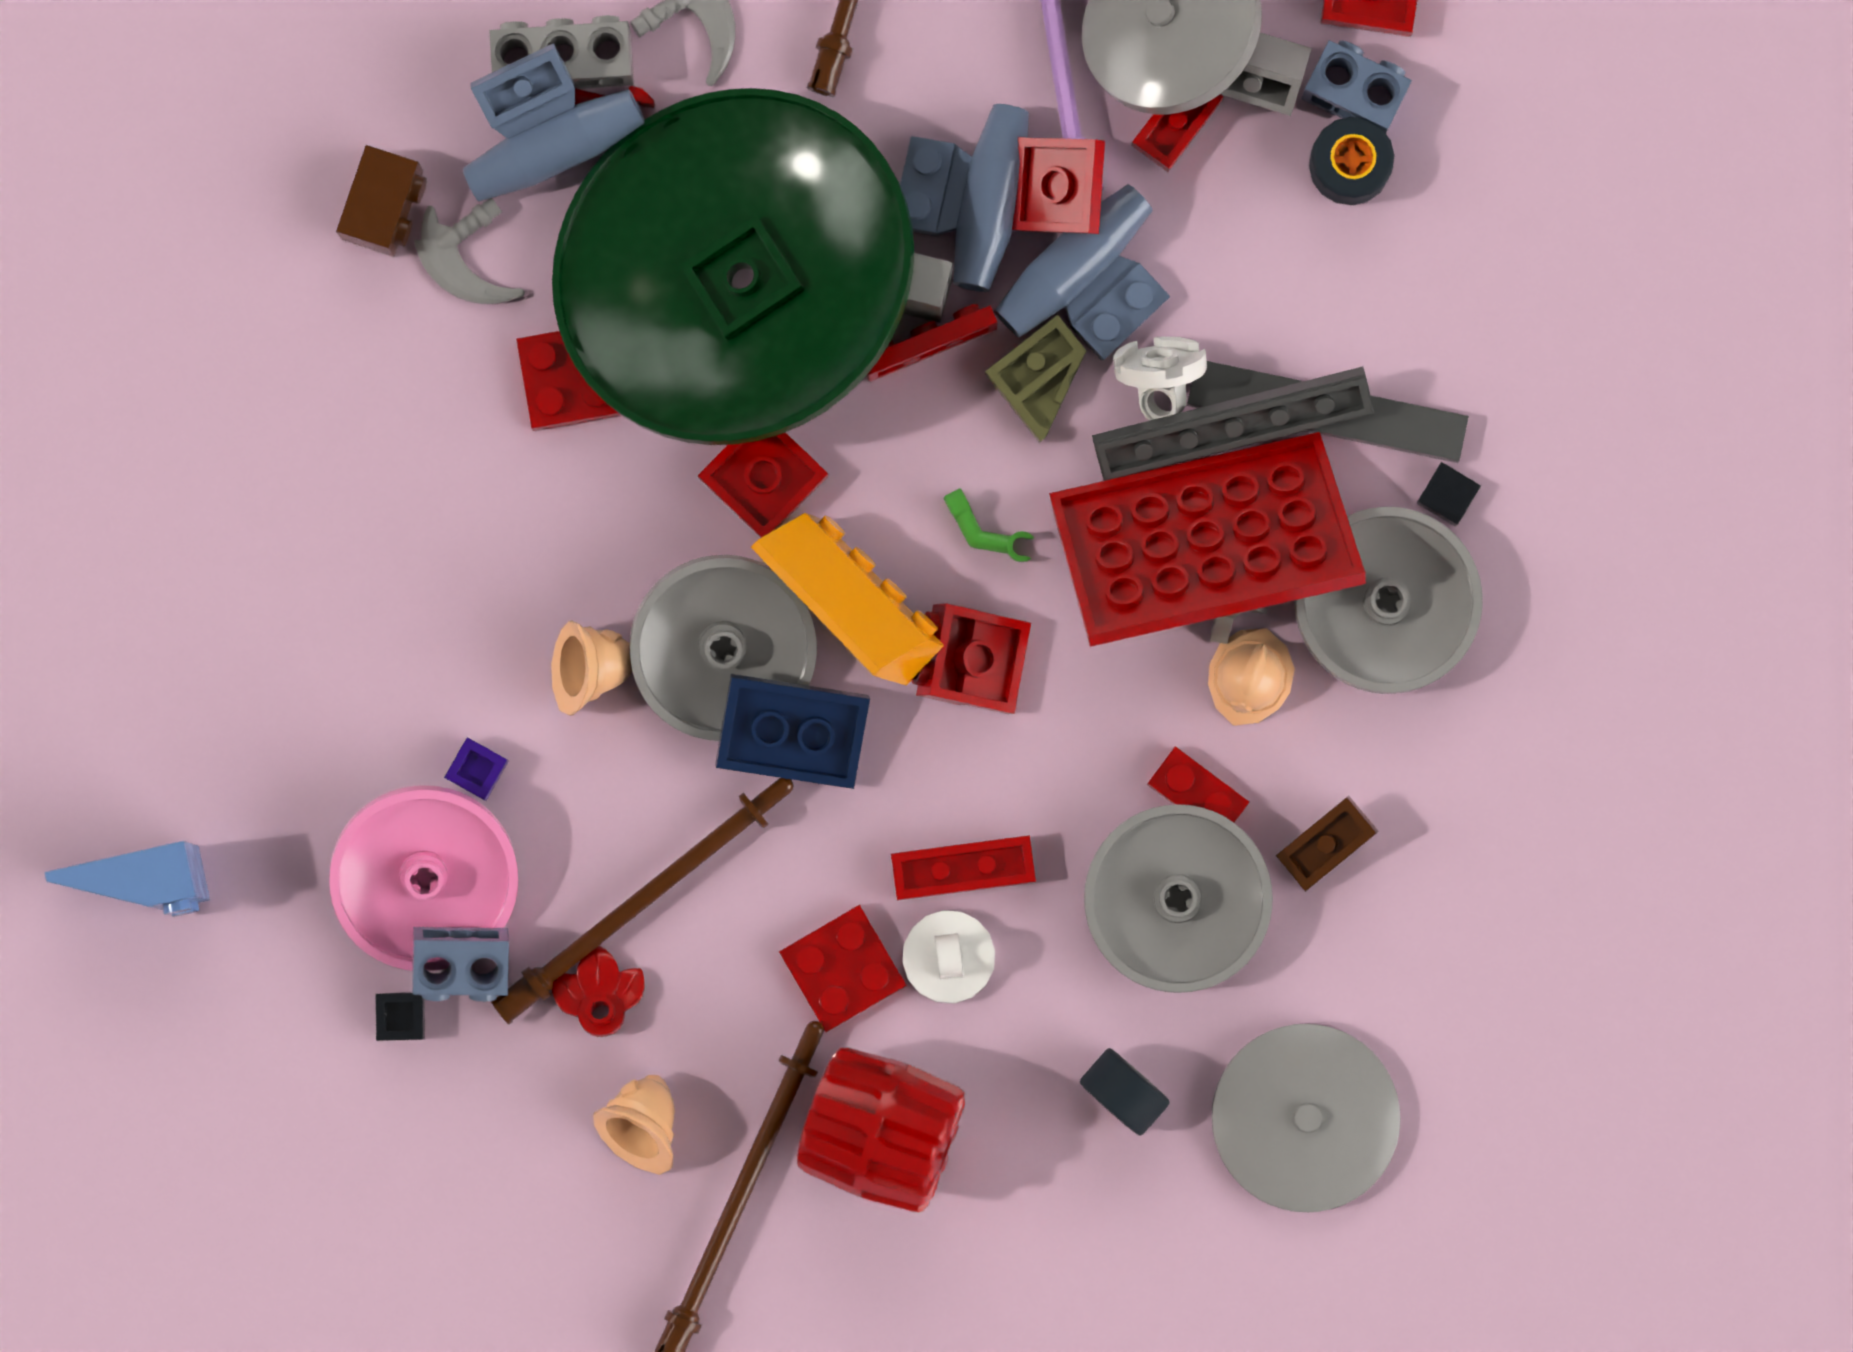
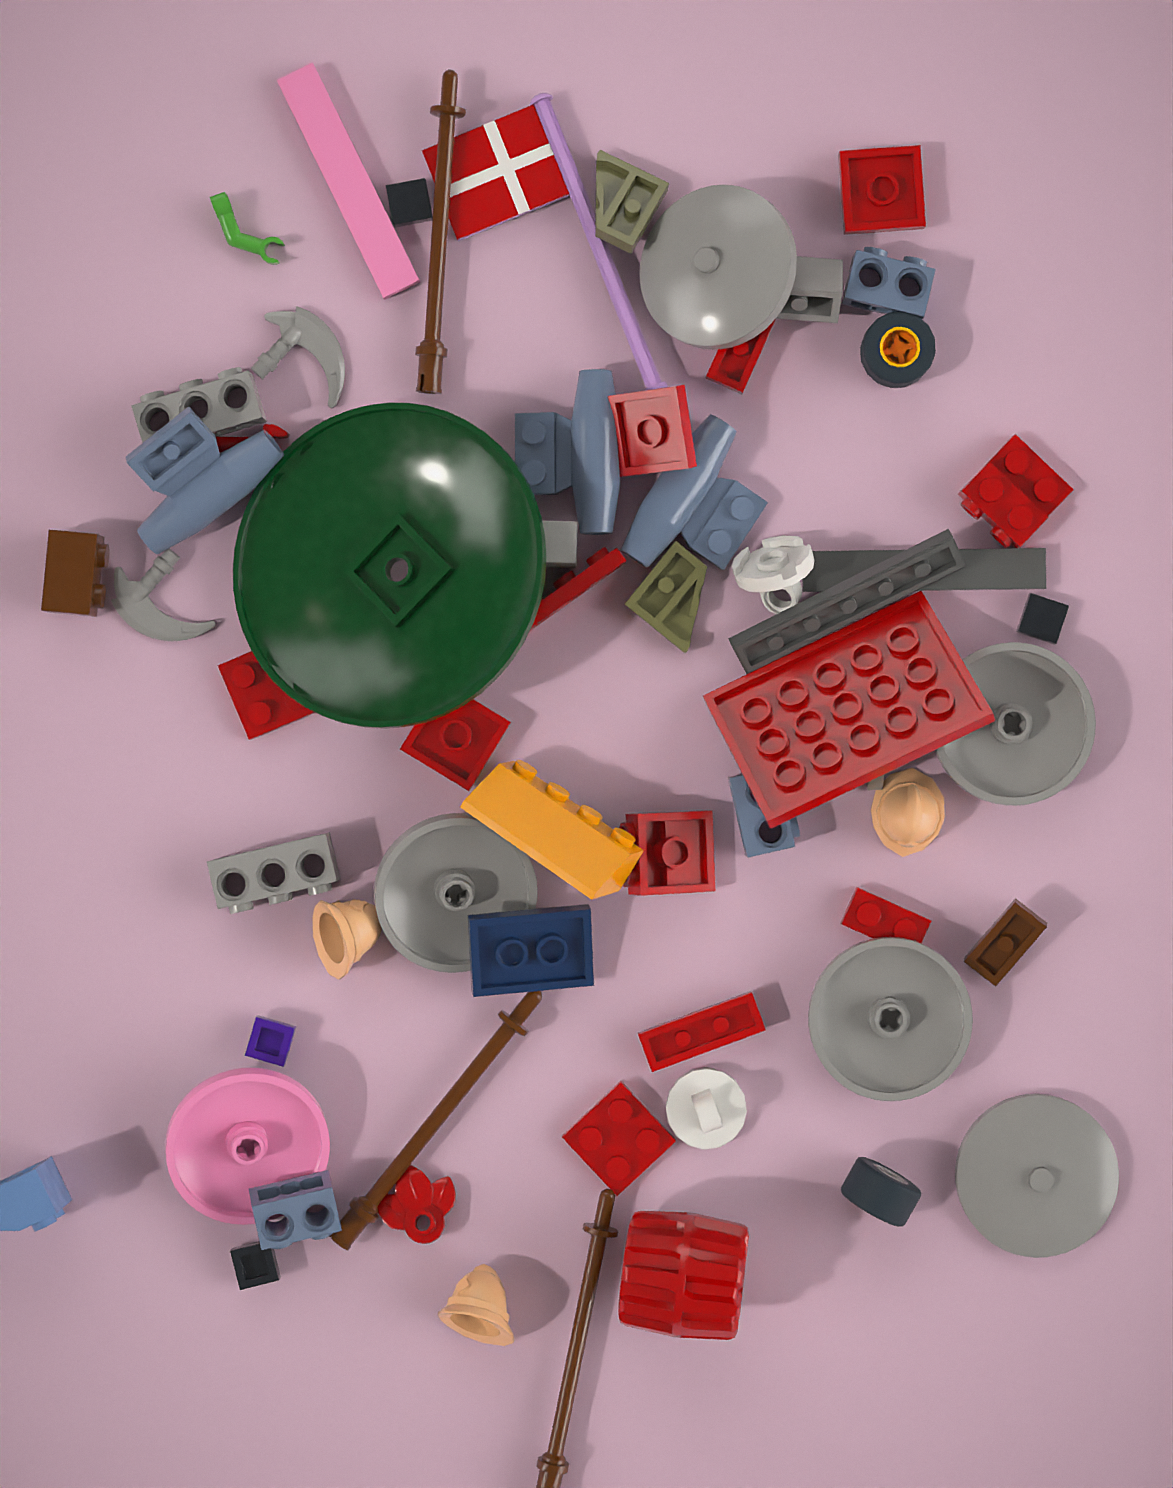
camera: 10 degrees left, 5 degrees up
(507, 564) = (253, 866): none -> light grey brick
(975, 536) = (646, 744): bright green arm -> none
(1073, 639) = (750, 818): none -> sand blue brick
(1446, 348) = (1014, 493): none -> red plate

